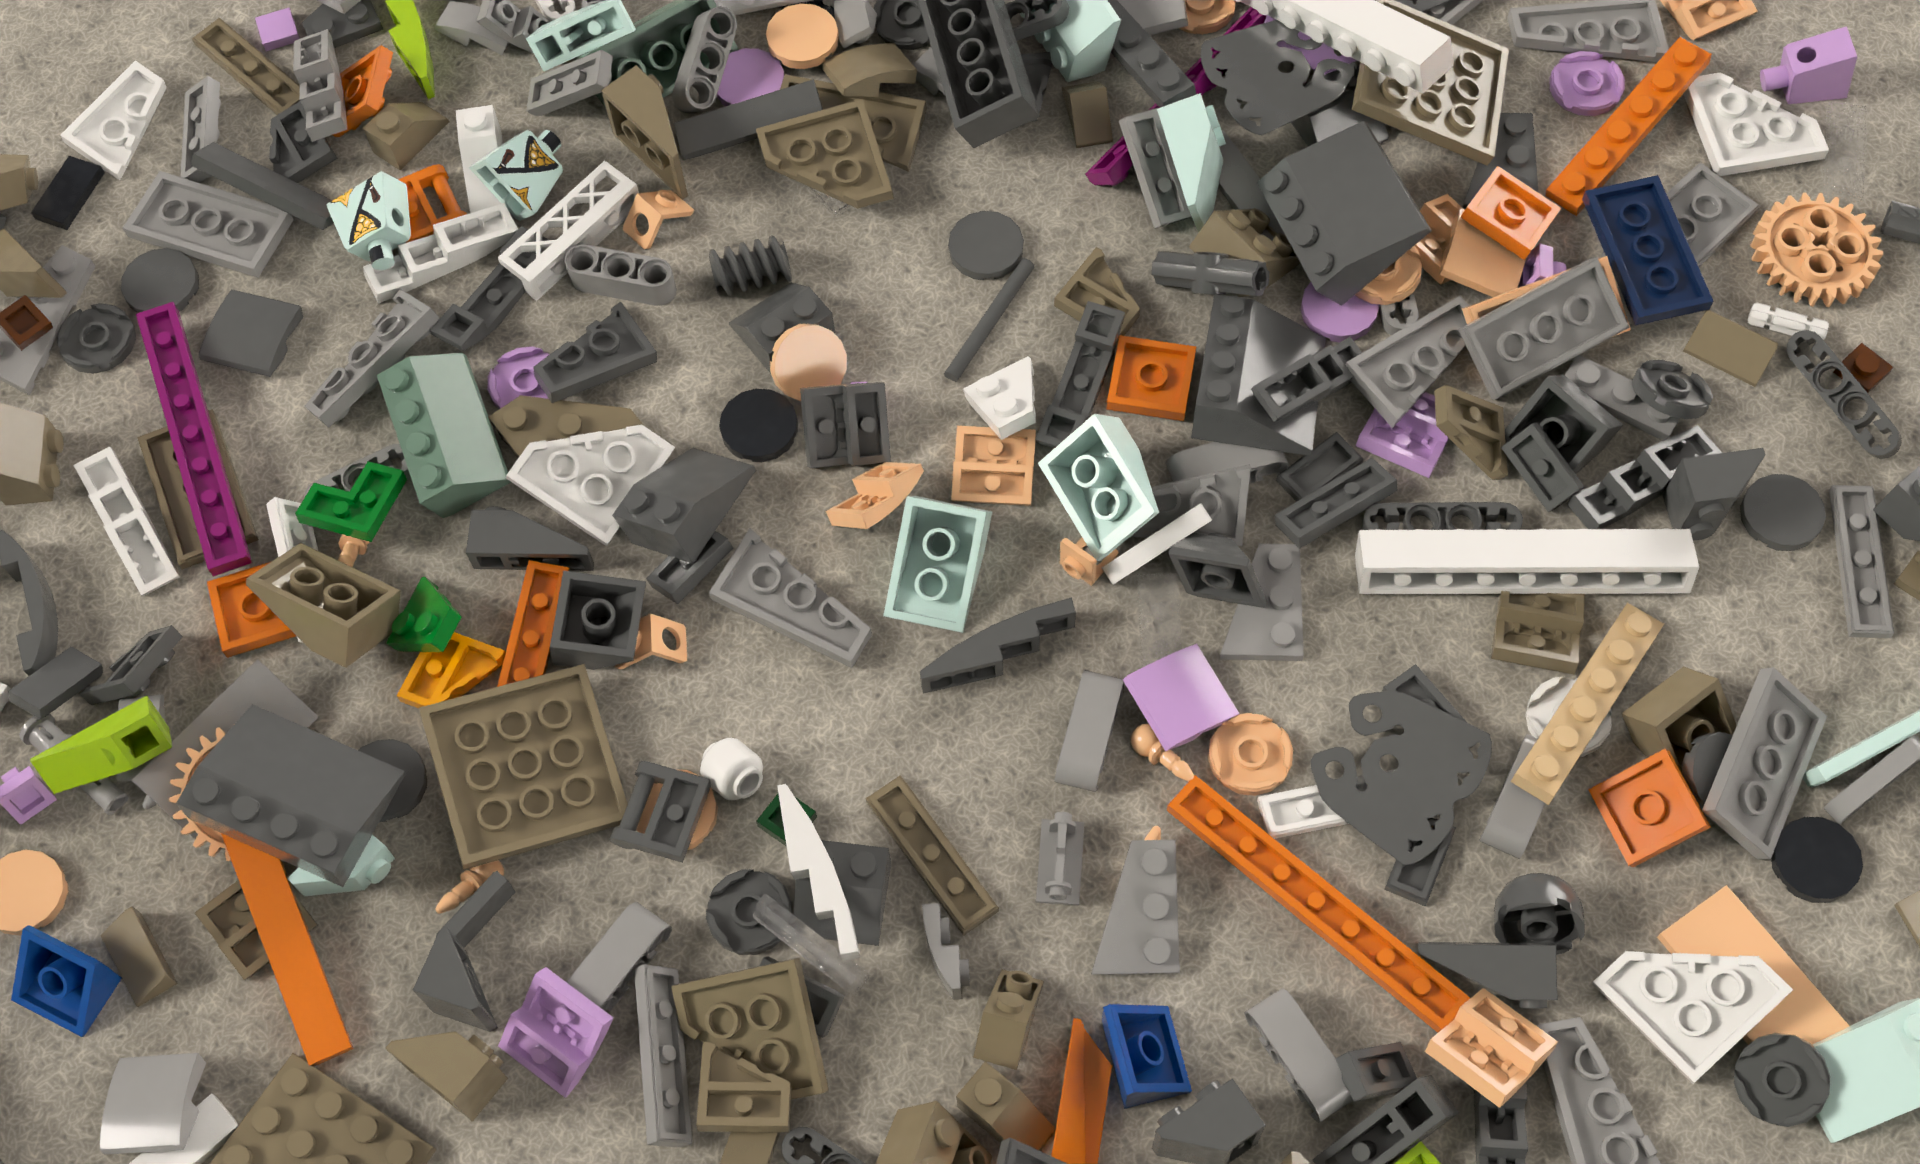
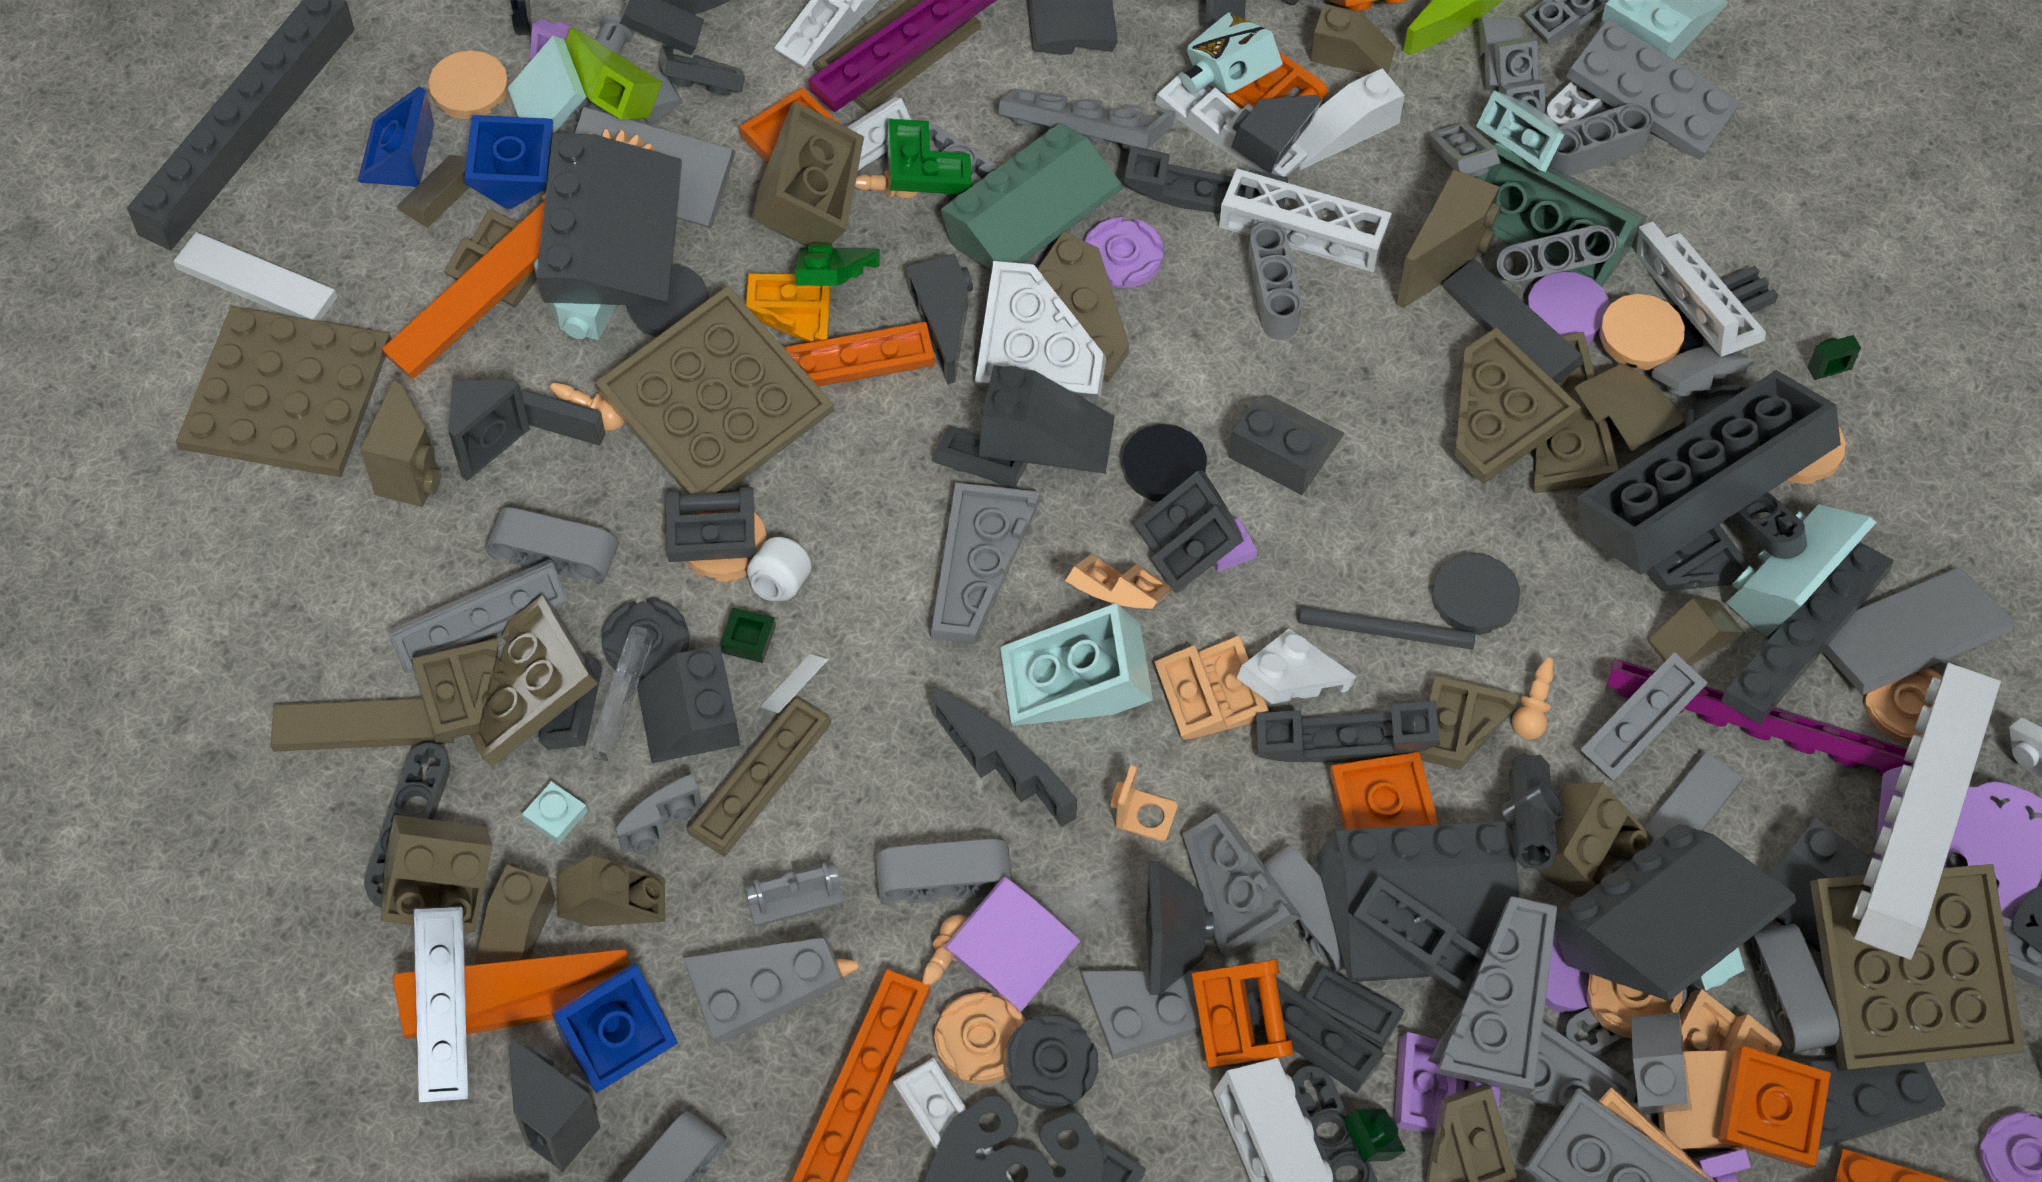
camera: 65 degrees right, 5 degrees down
(86, 813) = (548, 85): none -> light aqua tile
(148, 870) = (508, 157): none -> blue slope
(151, 1104) = (310, 246): light grey slope -> none
(477, 213) = (1273, 128): none -> dark grey slope
(521, 171) = (1347, 150): light aqua torso -> none
(555, 1032) = (470, 521): lavender slope -> none
(596, 620) = (881, 393): dark grey slope -> none
(598, 356) = (1176, 299): dark grey wing -> none
(651, 642) = (883, 445): light nougat bracket -> none
(656, 207) = (1367, 282): light nougat bracket -> none
(750, 265) = (1337, 387): dark grey piece -> none
(807, 358) = (1246, 472): light nougat tile -> none
(810, 859) = (691, 649): white slope -> none
(850, 796) = (794, 683): none -> white sticker
(898, 1046) = (554, 812): none -> light aqua plate
(1101, 483) = (1221, 780): light aqua slope -> none
(1116, 251) = (1530, 719): none -> light nougat bar
(1156, 543) = (1196, 873): white beam -> none
(1194, 146) = (1668, 746): light aqua slope -> none
(1254, 76) = (1808, 779): dark grey piece -> none
(1294, 705) = (1050, 1062): none -> dark grey tile
(1306, 553) = (1227, 1016): none -> orange plate
(1379, 350) = (1504, 1011): none -> light grey wing
(1429, 165) = (1793, 989): none -> light grey beam
(1438, 489) = (1374, 1134): none -> dark green plate
(1460, 267) = (1660, 1064): none -> light grey slope

